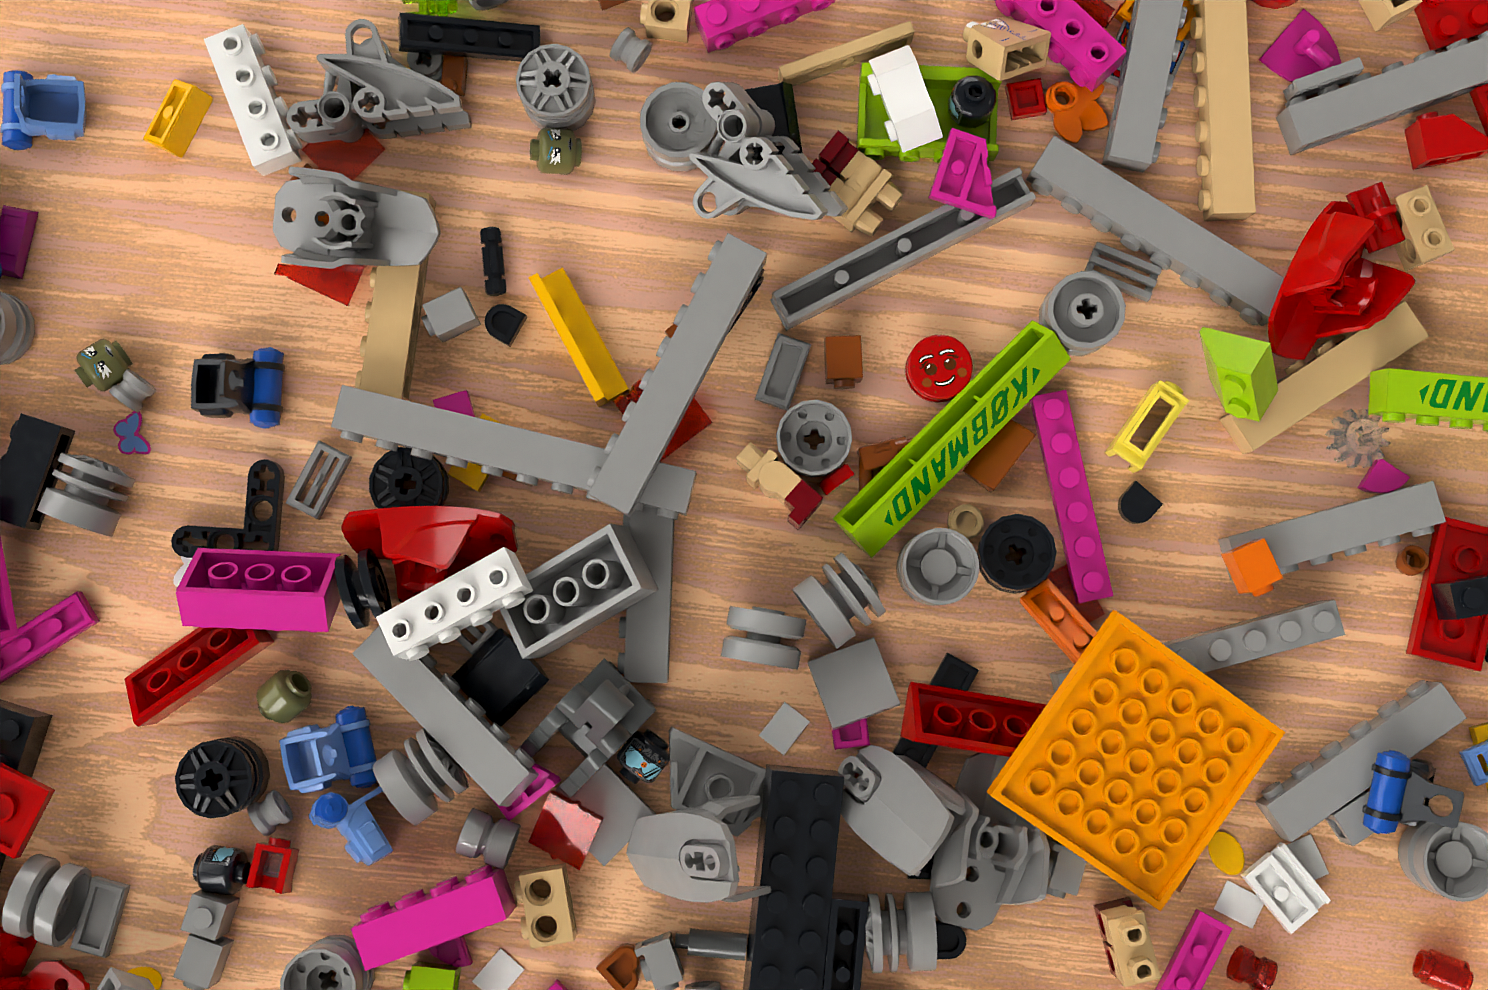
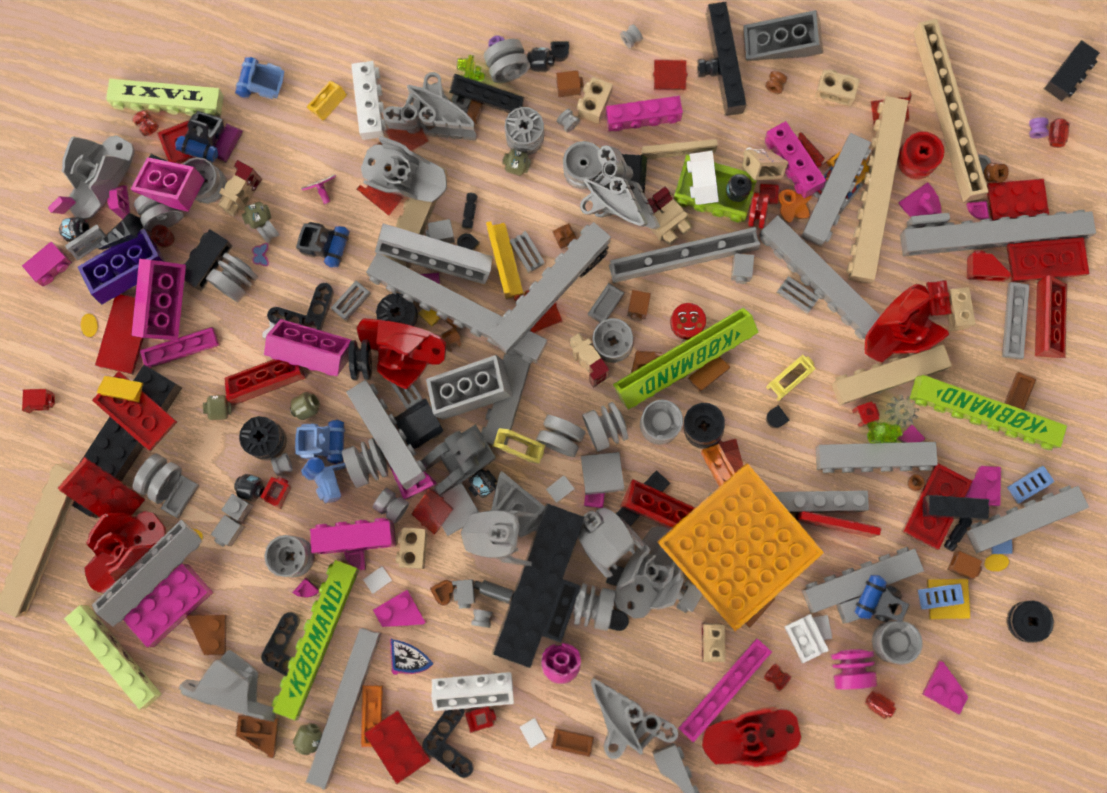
camera: 20 degrees right, 5 degrees down
(57, 324) = (239, 189): none -> tan hips
(124, 740) = (217, 407): none -> olive head
(212, 291) = (321, 189): none -> dark pink shield
(447, 360) = (433, 254): none -> light grey brick
(455, 604) = (405, 377): white brick -> none
(516, 504) = (451, 336): none -> dark orange tile
(596, 290) = (519, 239): none -> light grey tile
(678, 265) = (564, 235): none -> dark orange tile
(721, 675) = (534, 451): none -> light yellow window
(836, 479) = (620, 365): red tile -> none
(964, 175) = (725, 224): dark pink wing -> none
(966, 520) = (684, 403): tan tile -> none
(1012, 247) = (742, 268): none -> light grey brick
(1018, 133) = (759, 209): none -> red head
(1071, 497) = (741, 405): dark pink plate -> none
(1101, 309) = (776, 301): light grey wheel -> none
(1226, 853) = (779, 613): yellow sticker -> none
(1239, 904) = (779, 642): white sticker -> none
(1240, 372) = (845, 359): lime slope -> none
(1252, 567) = (827, 461): orange brick -> none
(1297, 673) = (838, 524): none -> red tile
(1300, 456) = (868, 413): none -> red window
(1335, 487) = (883, 432): none -> clear neon green hips
(1386, 927) = (854, 669): none -> dark pink wheel
(1406, 38) = (978, 209): none -> dark pink tile

